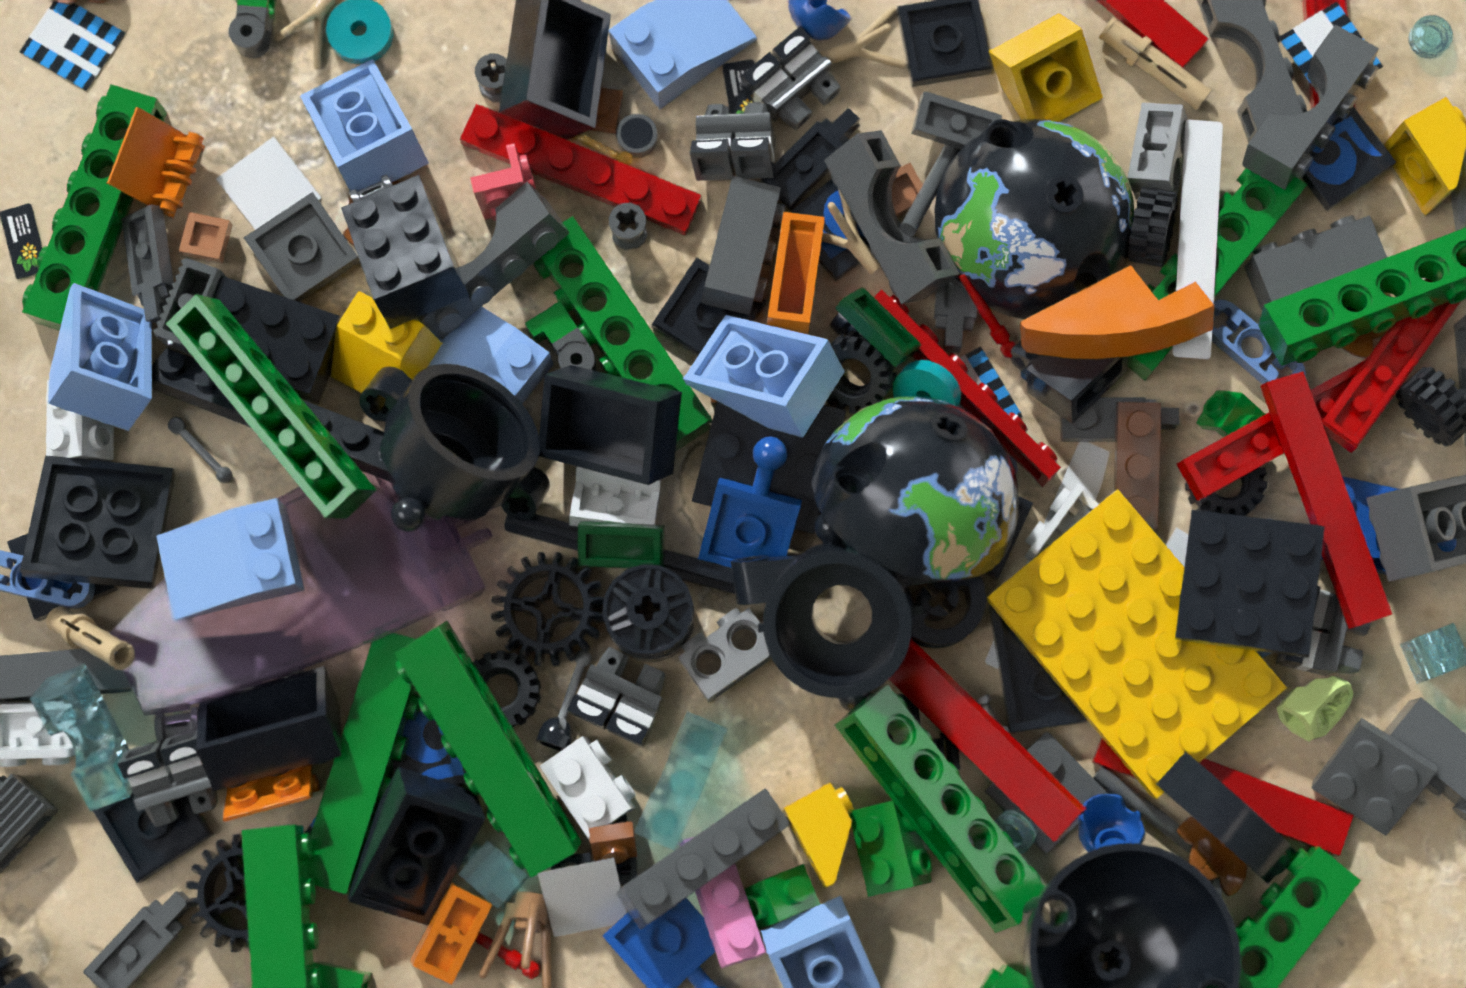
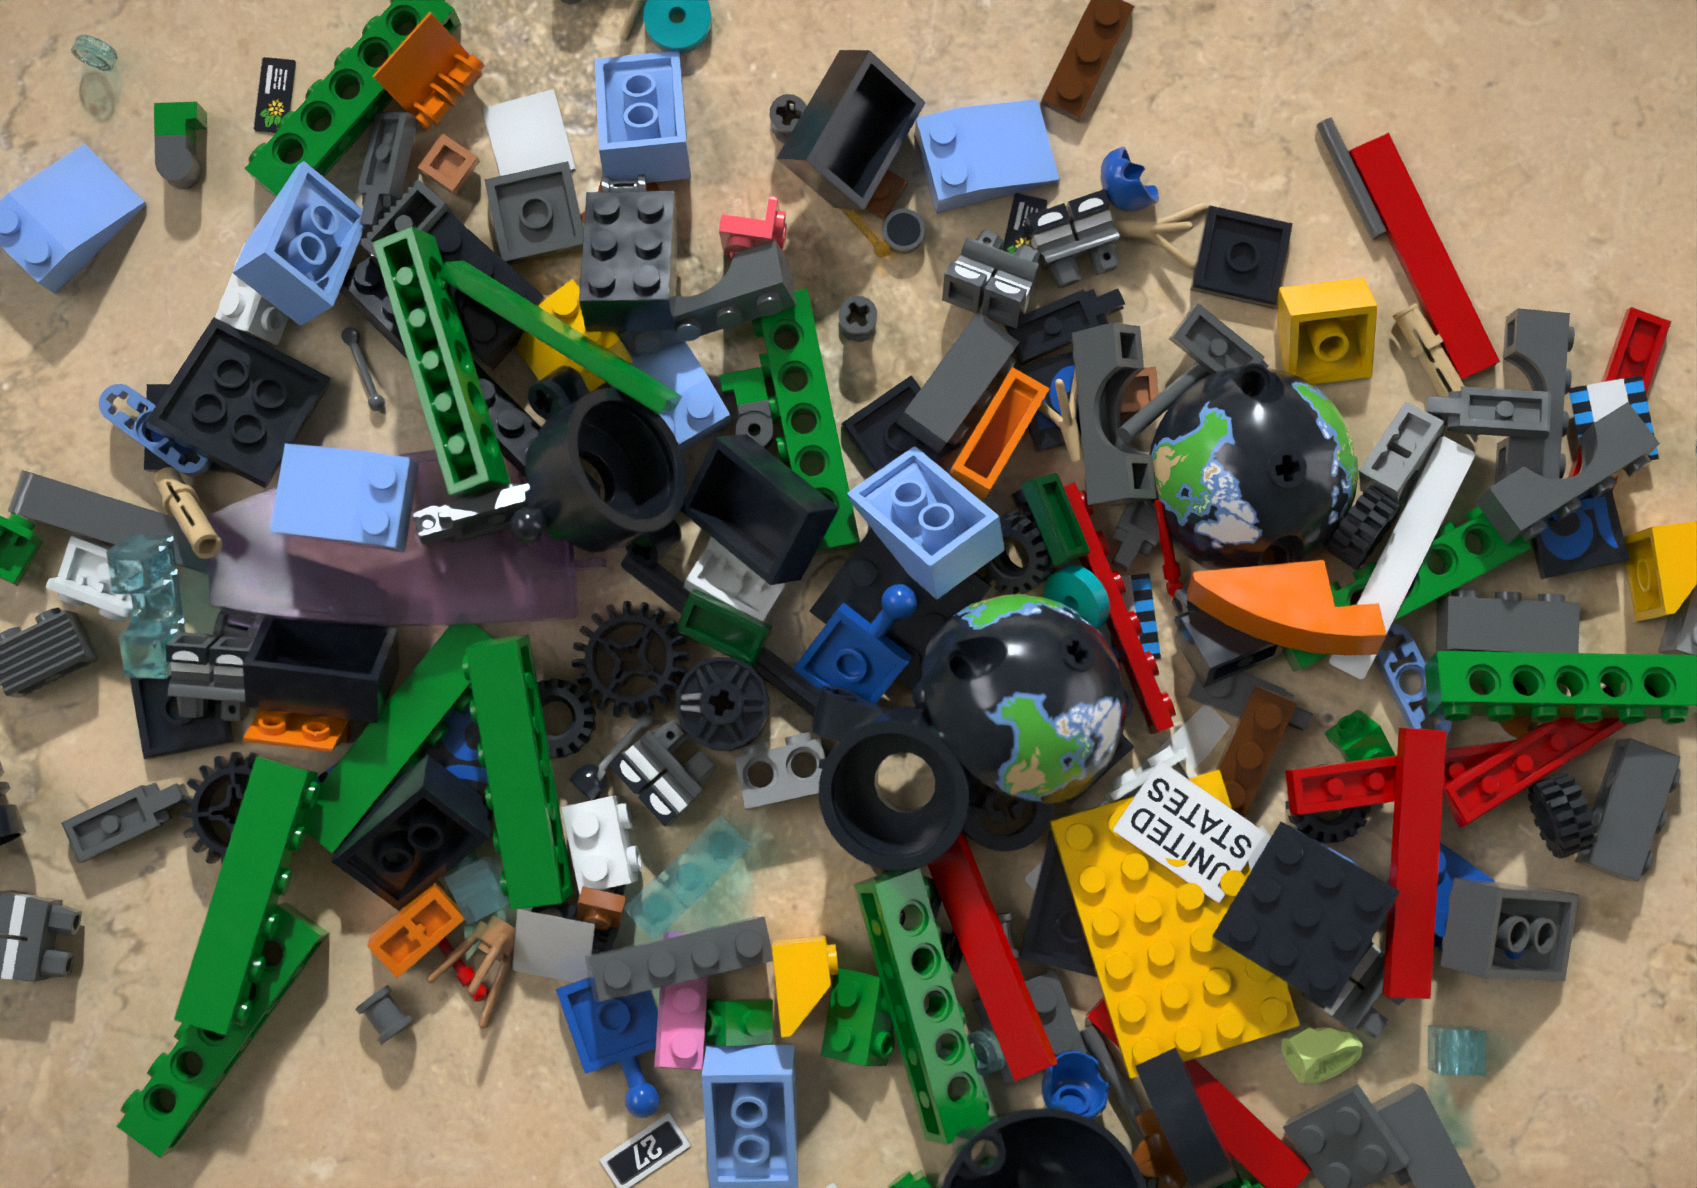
camera: 15 degrees right, 5 degrees up
(352, 531) = (470, 515): none -> dark grey hinge
(369, 341) = (560, 336): none -> green tile
(581, 169) = (836, 243): red plate -> none
(1110, 547) = (1186, 823): none -> white sticker
(1223, 80) = (1494, 412): none -> dark grey hinge

